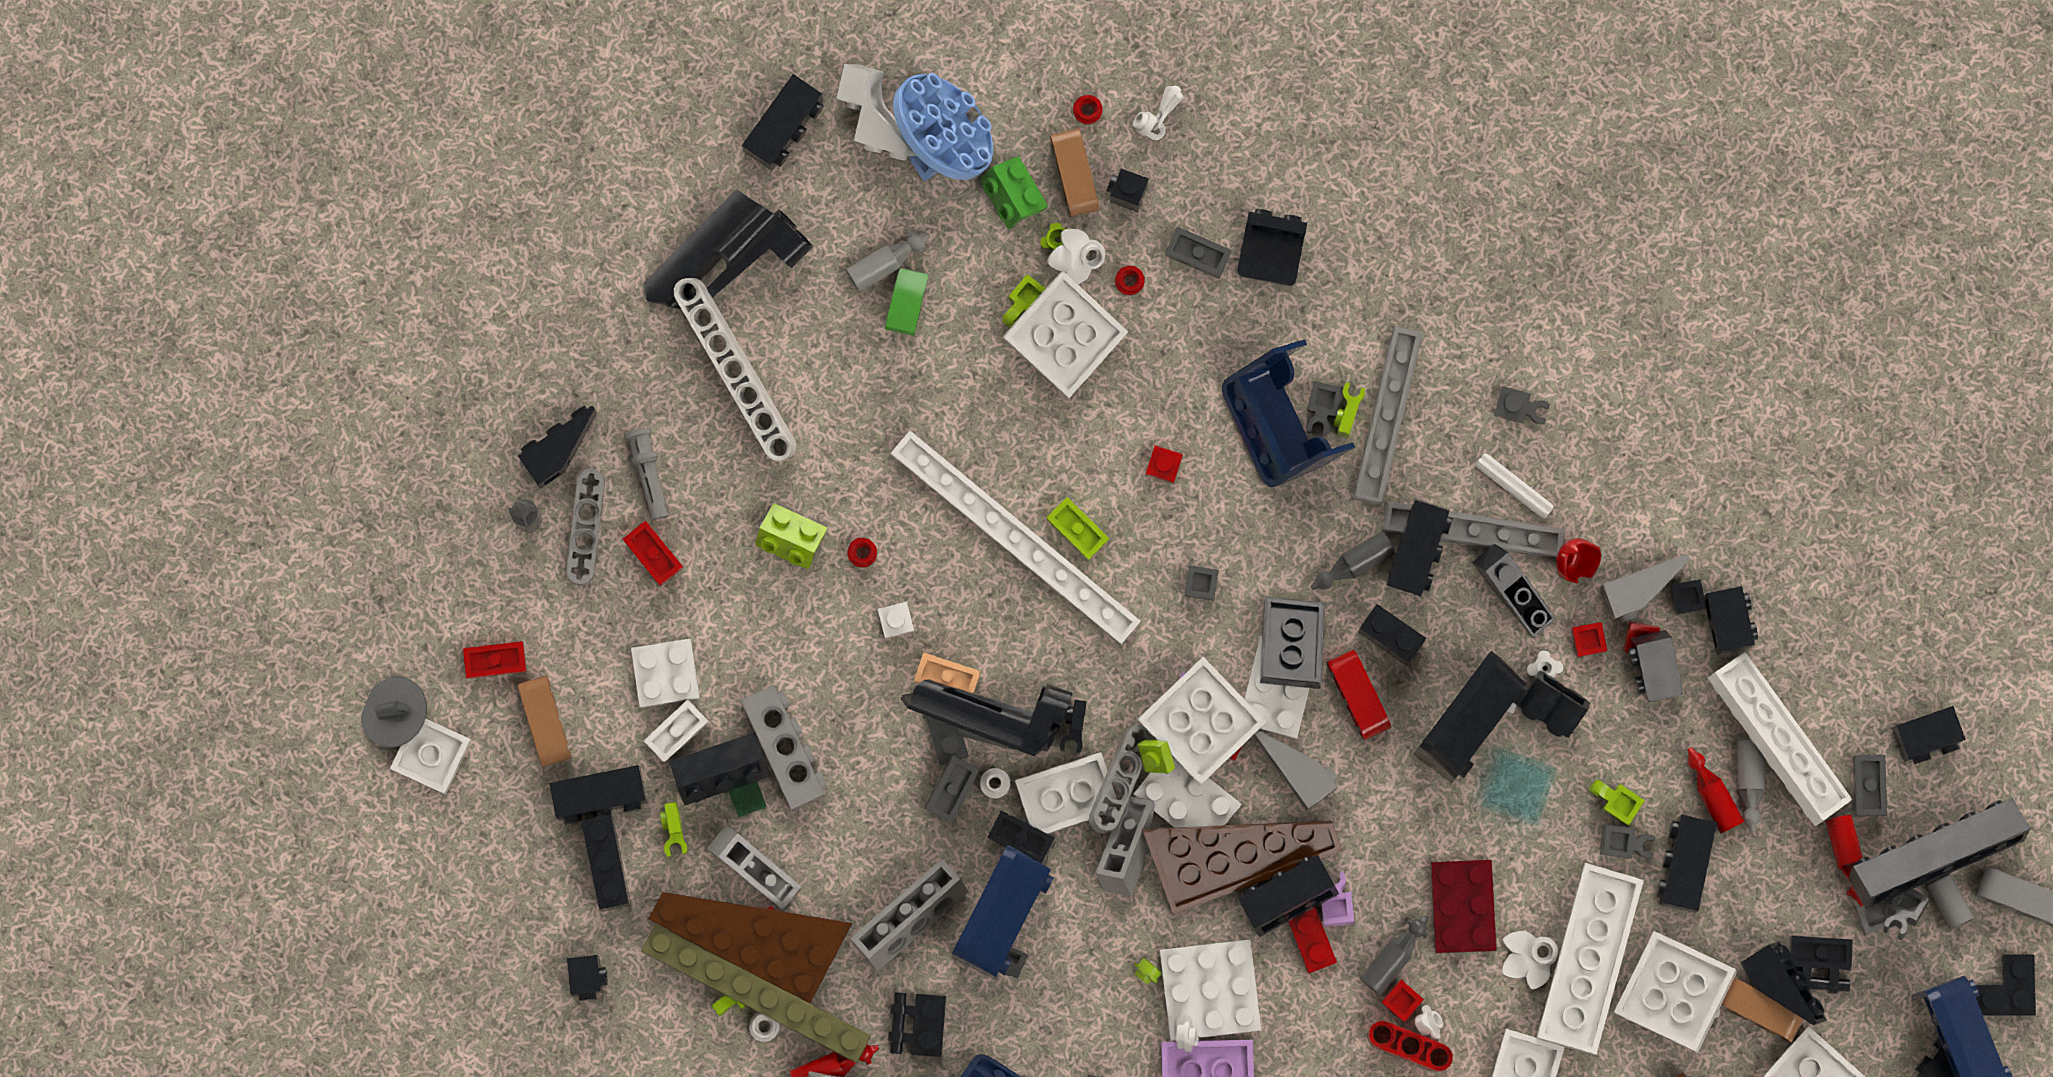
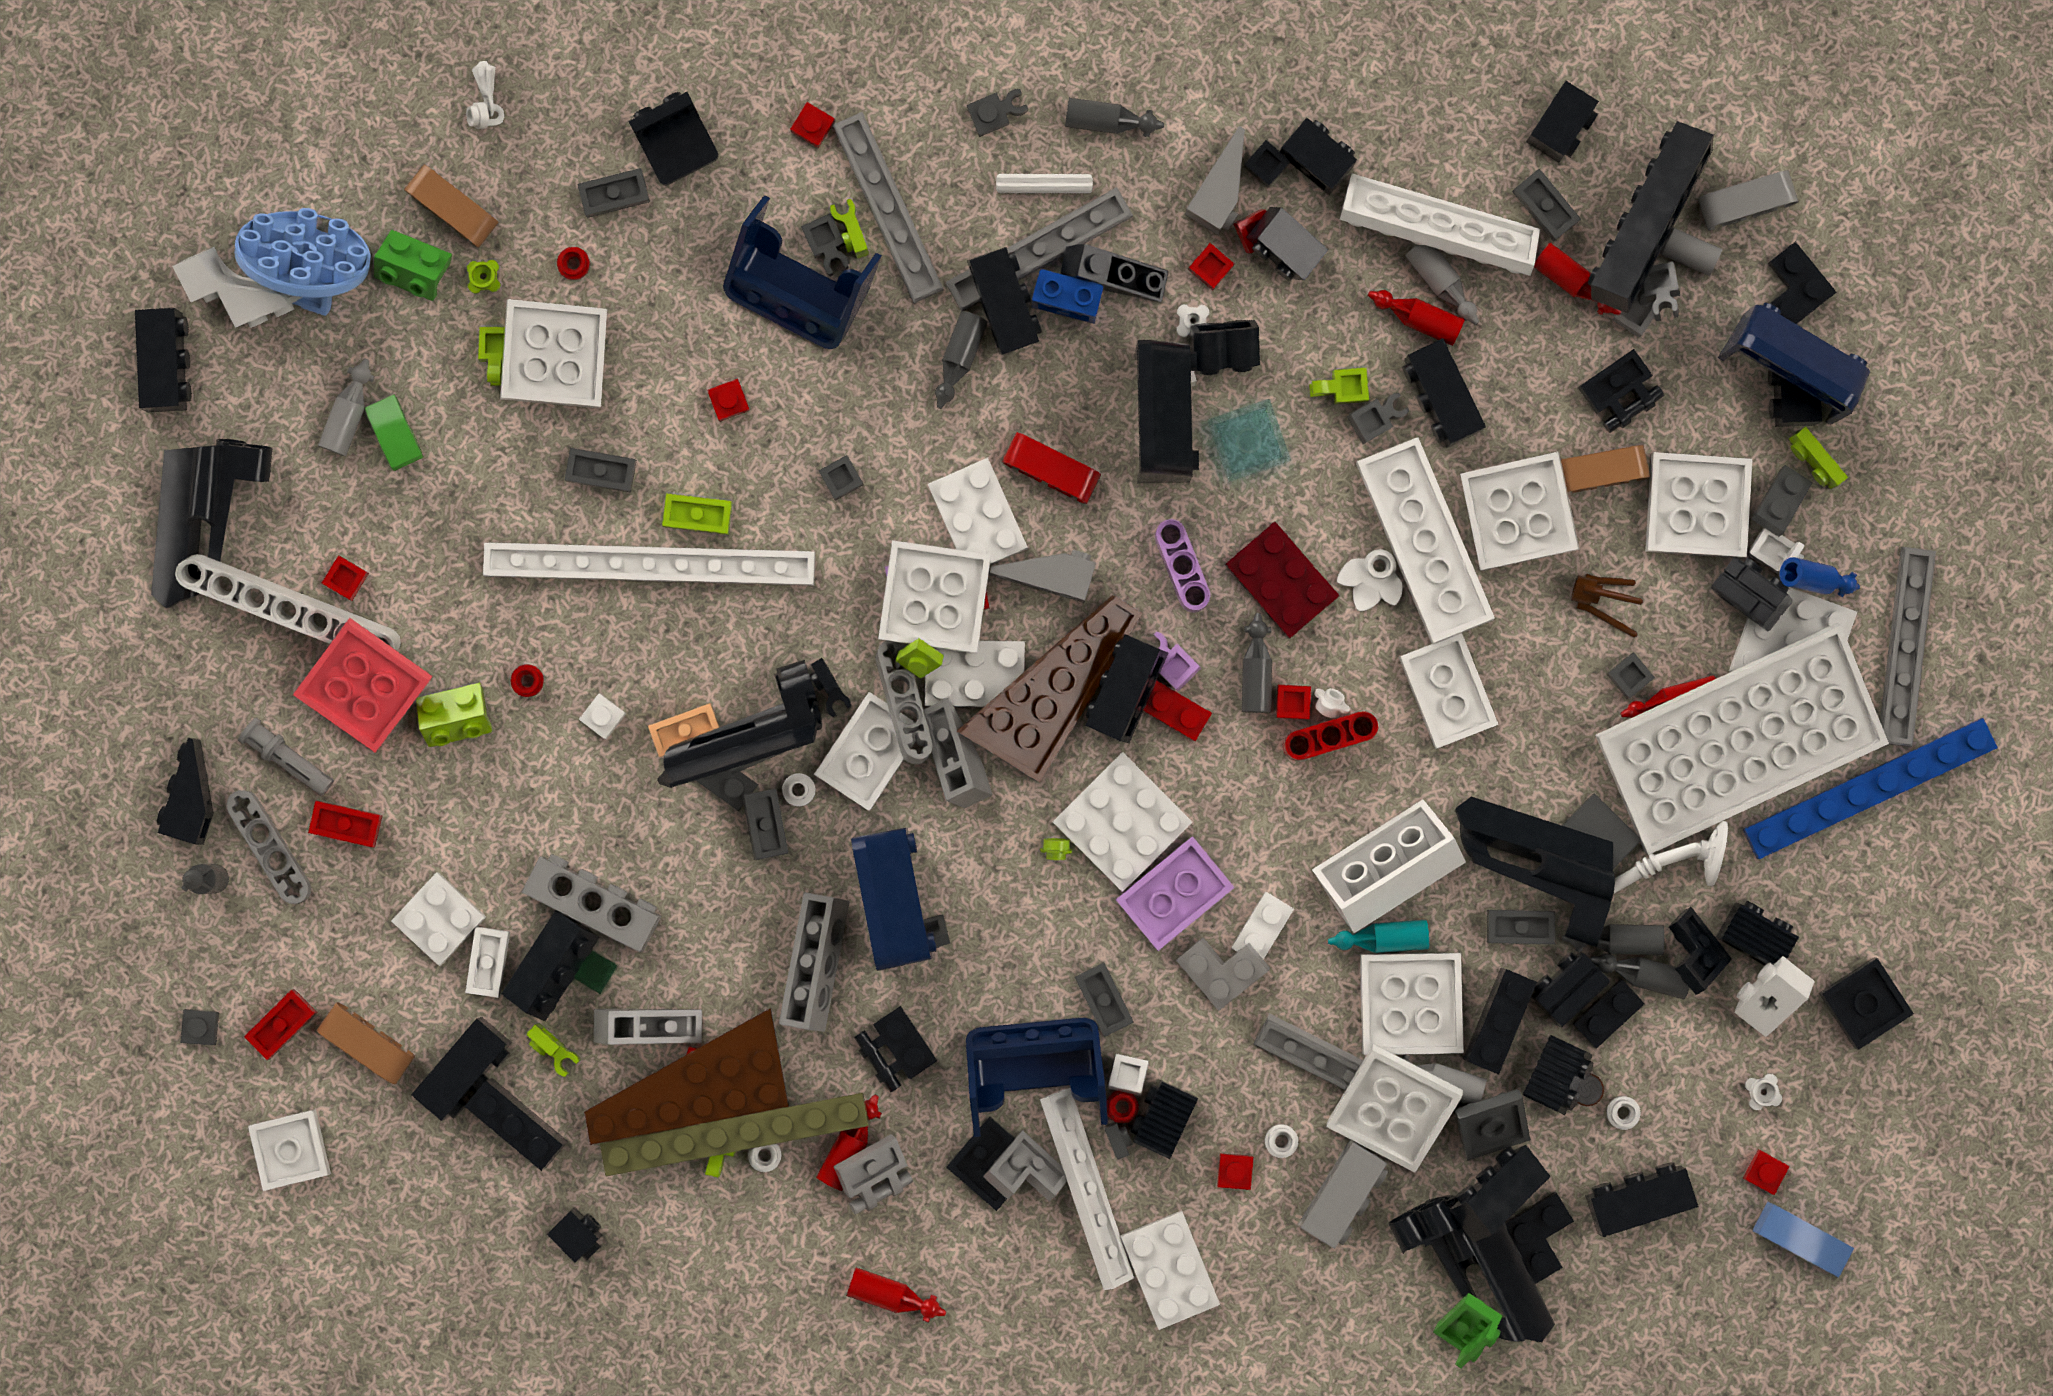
camera: 40 degrees left, 5 degrees up
(394, 712) = (228, 1138): dark grey shield -> none
(436, 617) = (199, 1027): none -> dark grey plate
(744, 464) = (362, 685): none -> coral plate
(790, 378) = (345, 578): none -> red plate
(1022, 836) = (859, 819): black hinge -> none
(1033, 443) = (600, 470): none -> dark grey plate
(1072, 255) = (505, 280): white plate -> none
(1085, 100) = (419, 132): red plate -> none
(1127, 189) = (509, 184): black brick -> none
(1187, 1036) = (1134, 879): white plate -> none
(1292, 643) = (959, 468): tile -> none
(1379, 314) = (812, 124): none -> red plate
(1391, 635) = (1040, 394): black brick -> none
(1408, 827) = (1182, 549): none -> lavender beam
(1467, 579) = (1067, 296): none -> blue bracket
(1577, 560) = (1148, 204): red hair -> none
(1598, 474) = (1108, 117): none -> dark grey wheel
(1777, 978) = (1601, 432): black slope -> none

